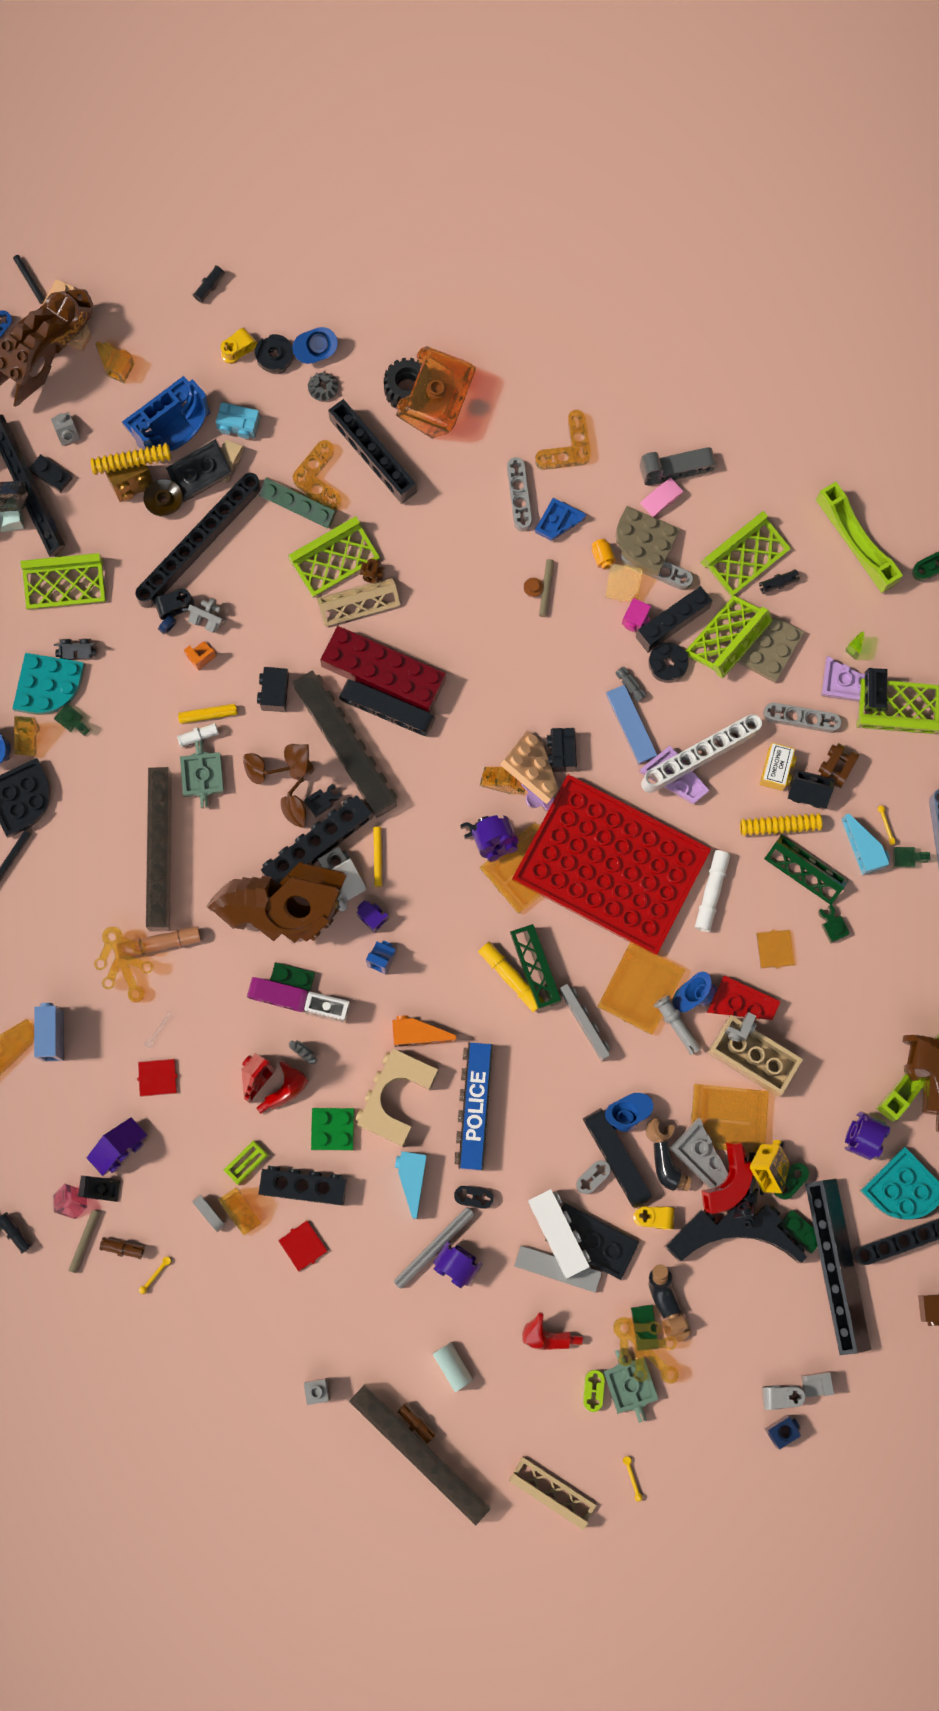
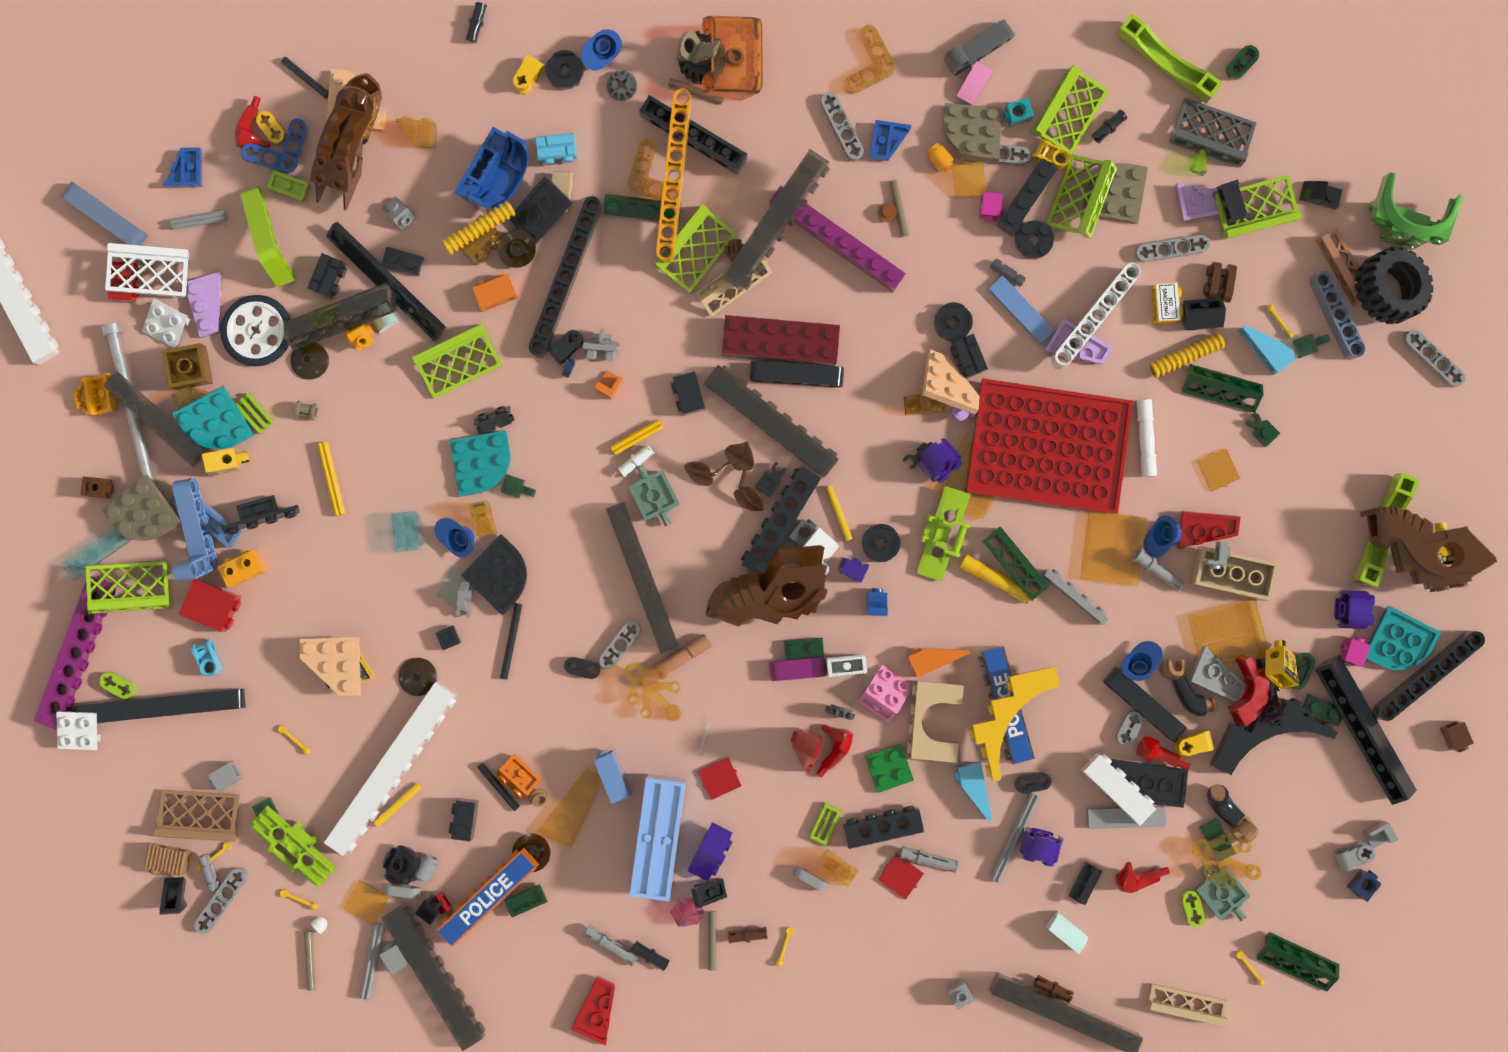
camera: 20 degrees left, 10 degrees up
(62, 920) = (583, 663): none -> black beam
(68, 1110) = (658, 837): none -> light blue brick
(125, 530) = (494, 292): none -> orange brick
(126, 905) = (607, 653): none -> light grey beam
(334, 1235) = (922, 857): none -> light grey pin
(337, 487) = (673, 166): none -> light orange beam
(356, 1051) = (885, 694): none -> bright pink bracket
(389, 413) = (694, 90): none -> dark tan bar
(407, 373) = (700, 52): none -> dark tan hair
(411, 911) = (890, 537): none -> black plate
(419, 552) = (775, 221): none -> clear smoke brick
(468, 910) = (938, 531): none -> lime piece
(474, 594) = (847, 246): none -> magenta brick
(490, 1323) = (1085, 883): none -> black hinge
(497, 1091) = (1003, 709): none -> yellow arch
(553, 702) = (961, 314): none -> black plate
(607, 1206) = (1151, 749): none -> red animal
(689, 1488) = (1302, 960): none -> dark green fence
(700, 532) = (1022, 105): none -> teal brick
(713, 585) = (1049, 154): none -> yellow piece
(853, 1180) = (1354, 651): none -> dark pink brick
(873, 636) = (1212, 148): none -> dark grey fence

